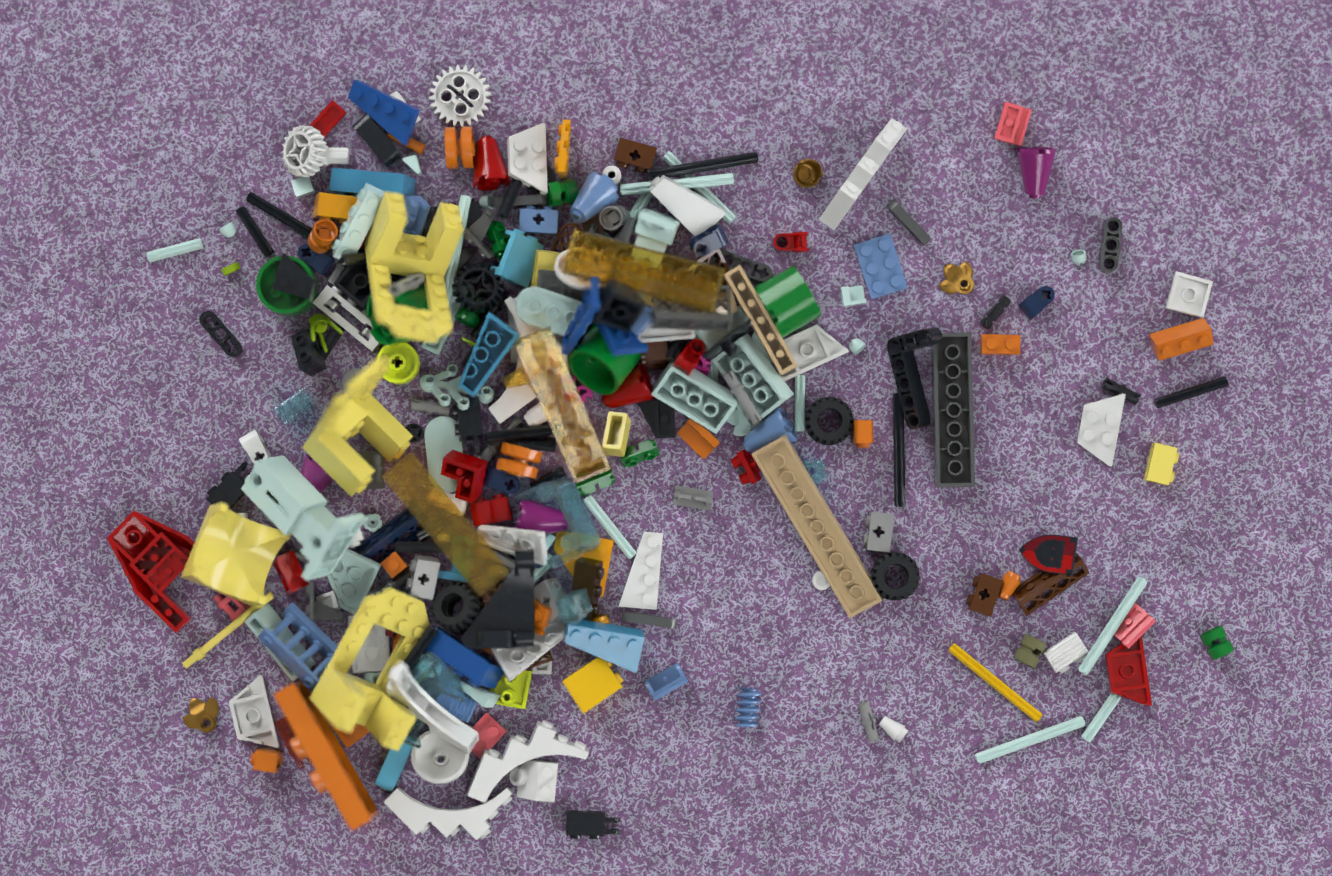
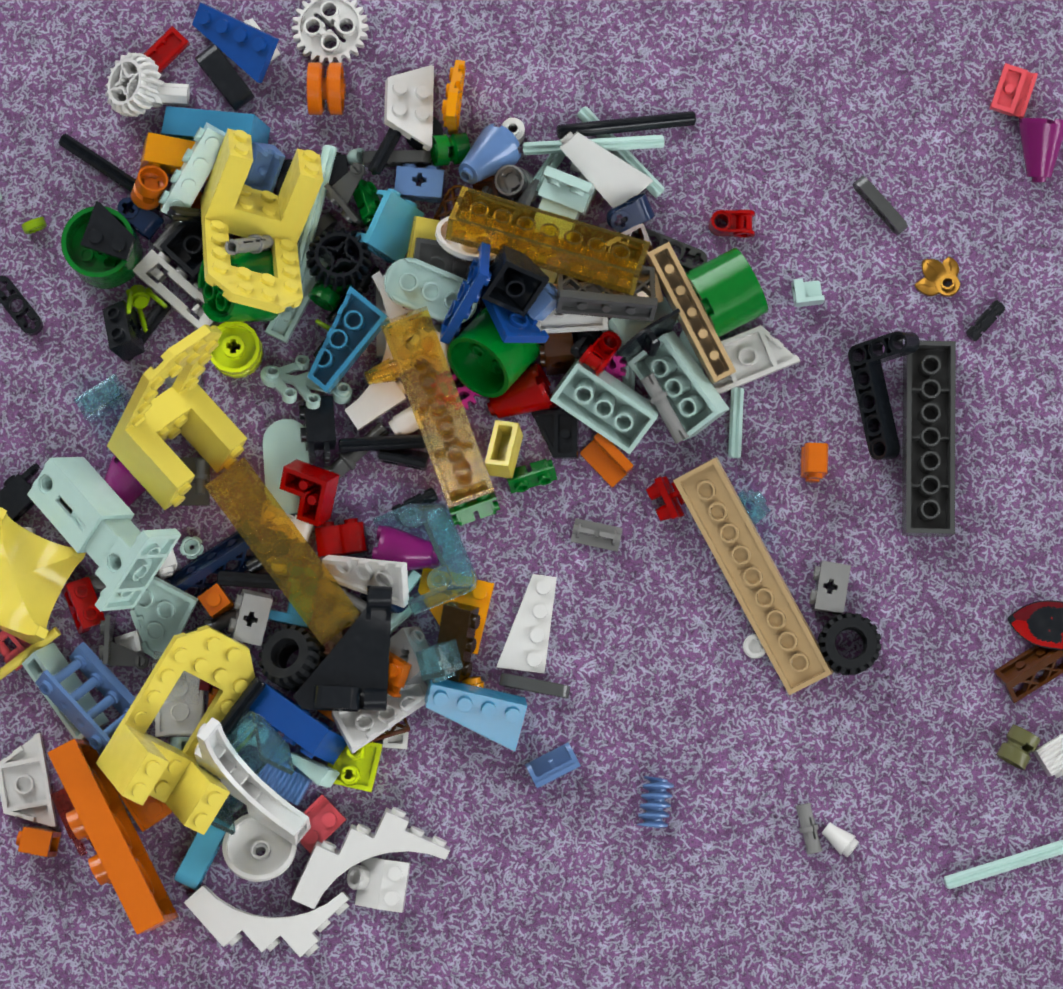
camera: 10 degrees right, 5 degrees down
(228, 230) = (34, 178): light aqua hinge -> none
(254, 231) = (66, 180): black axle -> none
(254, 445) = (48, 443): white piece -> none
(302, 187) = (130, 130): light aqua slope -> none
(413, 144) = (268, 84): orange piece -> none
(413, 163) = (267, 106): light aqua slope -> none
(413, 429) = (250, 431): black wheel -> none
(430, 407) = (272, 407): light grey pin -> none
(489, 166) = (361, 114): red cone -> none
(497, 480) = (351, 502): dark blue piece -> none
(519, 460) = (379, 476): orange wheel -> none
(589, 824) = (445, 943): black hinge -> none
(593, 683) = (459, 762): yellow slope -> none
(609, 526) = (490, 566): light aqua axle -> none
(645, 152) = (533, 101): reddish brown brick -> none
(741, 421) = (660, 440): light aqua plate -> none
(770, 429) = (695, 452): medium blue cone -> none
(807, 173) = (756, 139): pearl gold hair -> none
(839, 407) = (786, 430): black tyre -> none
(856, 346) = (810, 354): light aqua hinge -> none
(862, 173) = (823, 142): white arch -> none
(880, 266) = (843, 258): medium blue plate -> none
(899, 452) = (858, 489): black axle -> none
(986, 605) = (972, 663): reddish brown brick -> none
(996, 683) = (972, 786): yellow axle -> none
(999, 344) = (990, 360): orange piece -> none
(1009, 585) = (993, 661): orange cone -> none
(1034, 303) = (1036, 310): dark blue piece -> none

